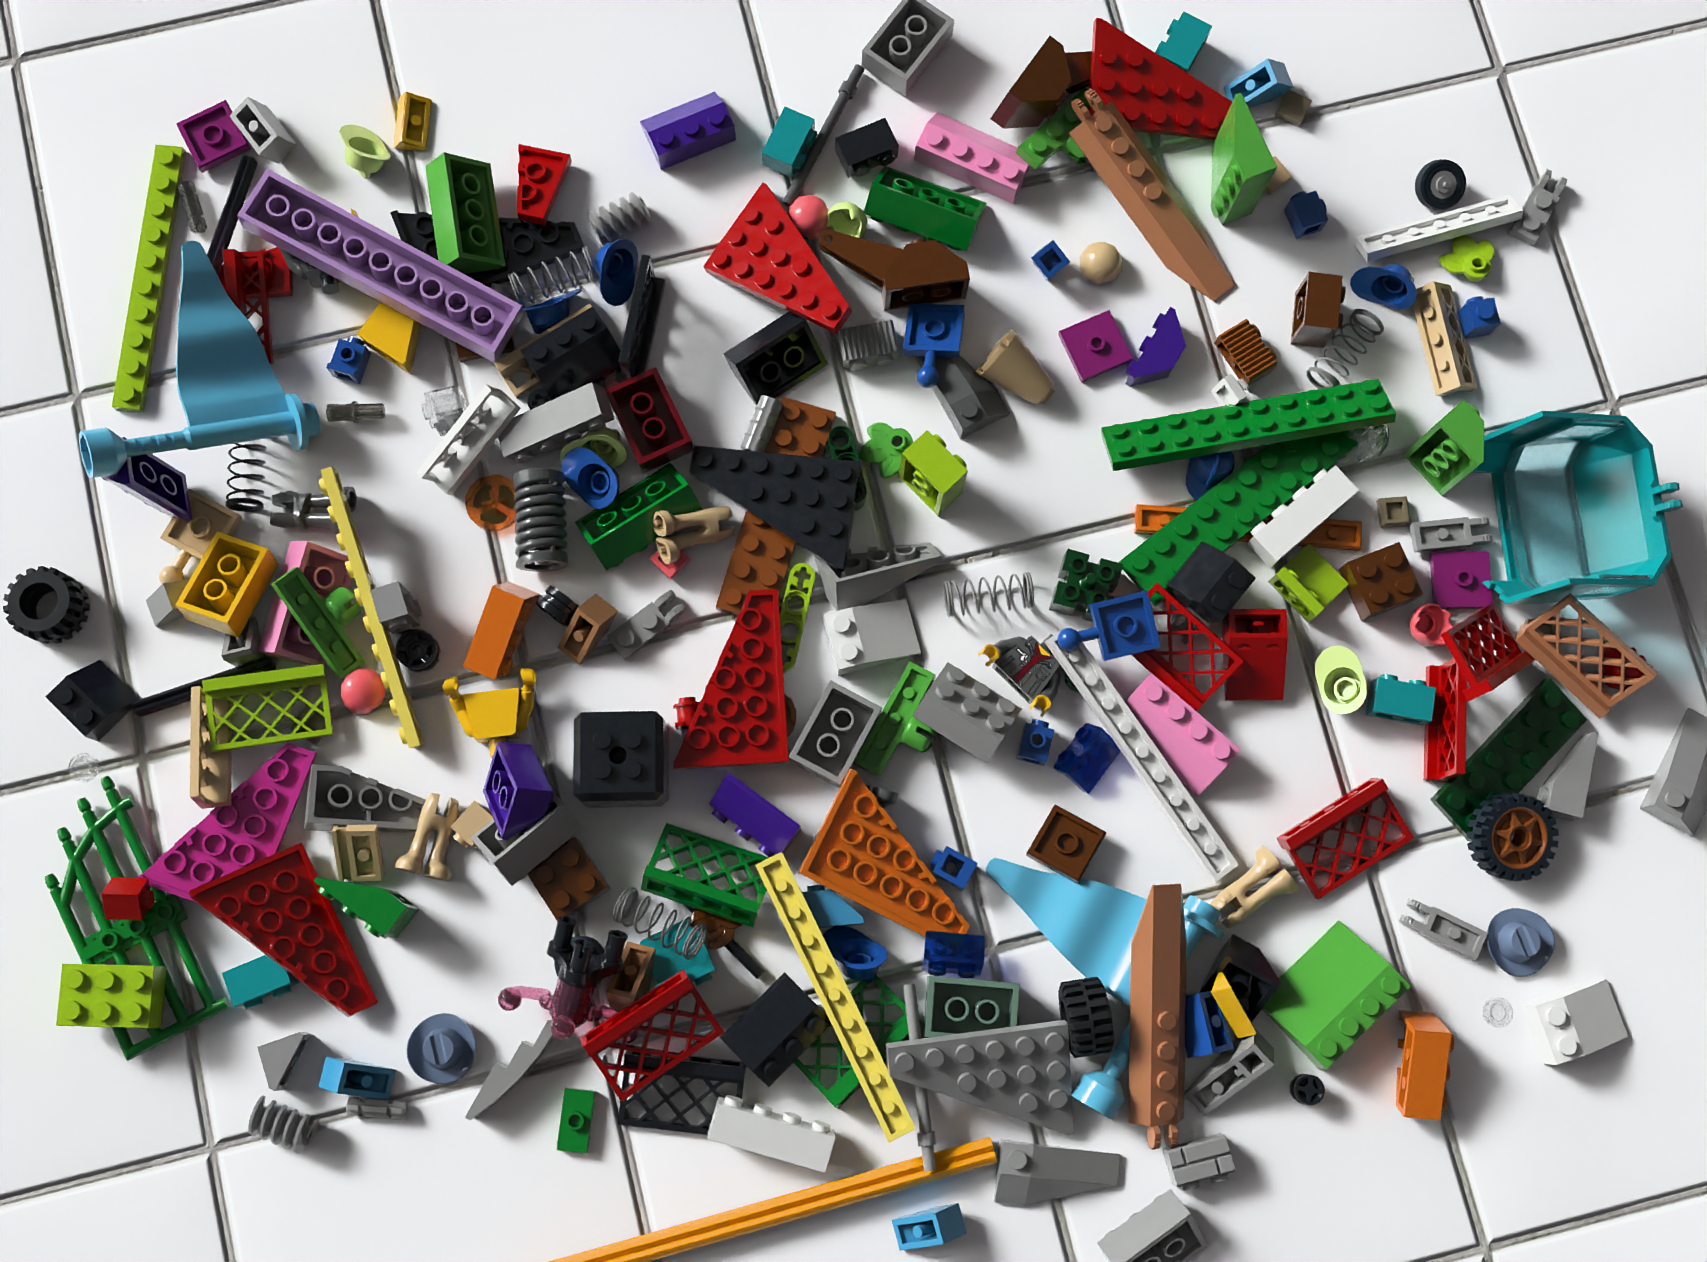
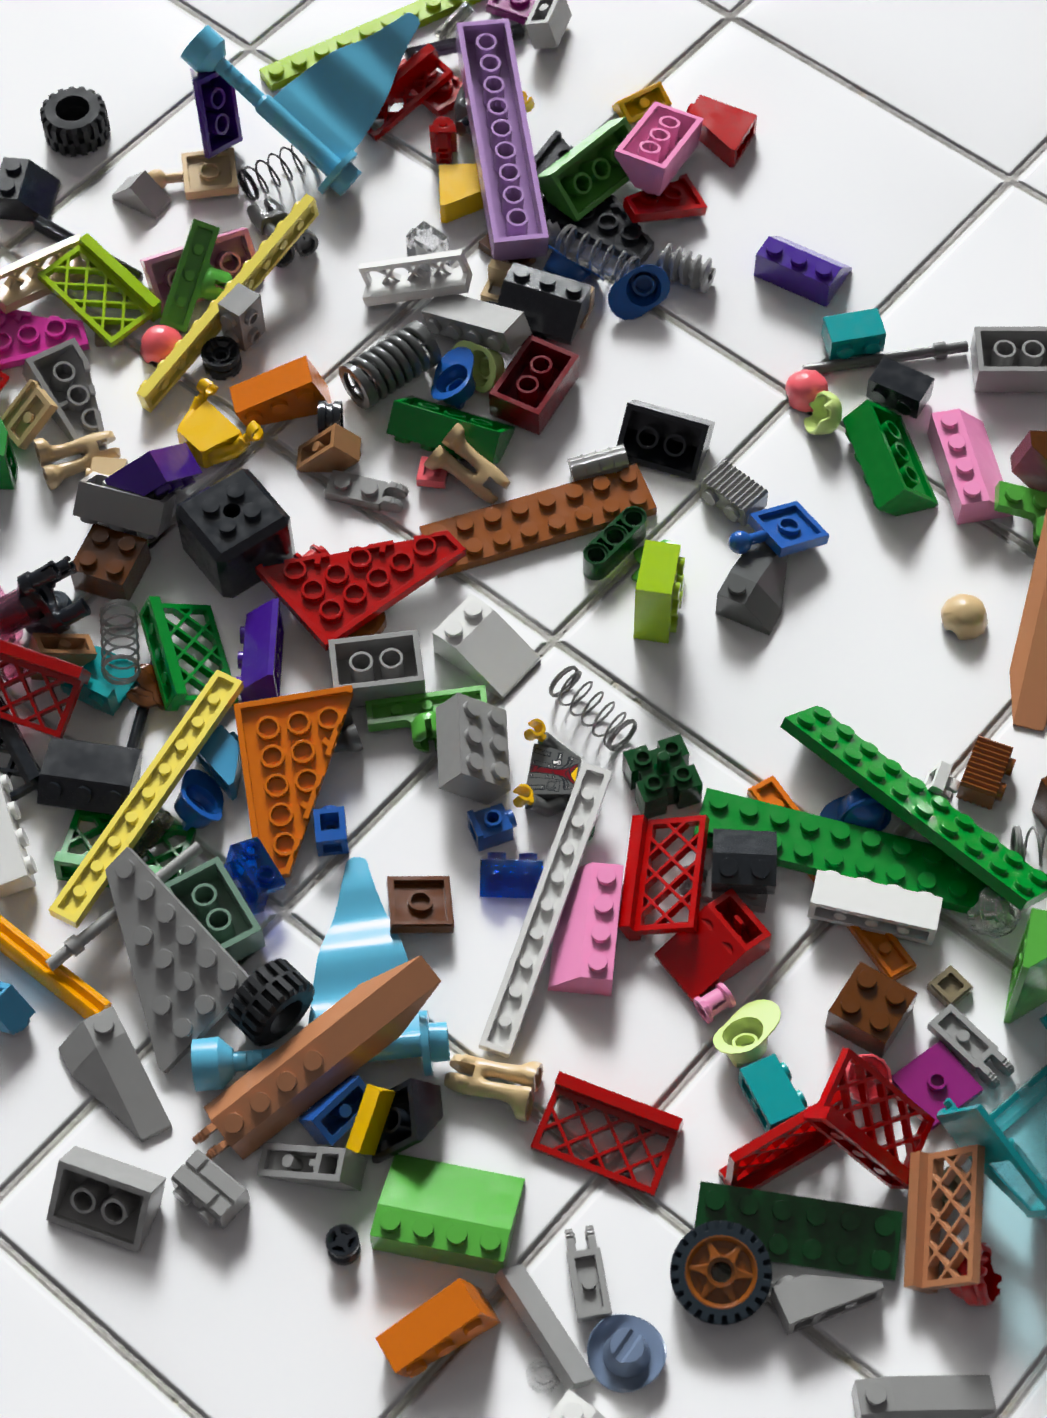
camera: 60 degrees right, 20 degrees down
(227, 584) = (168, 205): yellow brick -> none
(245, 648) = (134, 247): light grey slope -> none
(327, 309) = (443, 139): none -> red hips
(353, 367) = (417, 178): blue brick -> none
(354, 412) = (379, 206): clear smoke axle -> none
(363, 149) = (590, 84): yellowish green piece -> none
(487, 146) = (658, 147): none -> bright pink slope
(491, 502) = (376, 328): clear orange tile -> none
(494, 82) = (724, 128): none -> red slope
(641, 322) = (617, 335): black fence -> none
(776, 264) = (741, 384): red wing -> none
(796, 617) = (457, 589): lime beam -> none
(797, 495) = (554, 512): black wing -> none
(864, 1010) = (153, 833): none -> clear smoke axle
(874, 573) = (526, 606): light grey wedge -> none
(916, 274) = (816, 474): reddish brown slope -> none
(1017, 370) = (807, 604): tan cone -> none
(1049, 260) = (925, 570): blue brick -> none
(1095, 346) = (886, 658): magenta plate -> none
(1120, 626) = (642, 810): blue plate -> none
(1159, 352) = (923, 705): dark purple slope -> none
(1296, 686) = (714, 1002): none -> bright pink bush
(1308, 583) = (819, 953): lime bracket -> none
(1466, 987) = (544, 1327): none -> light grey tile

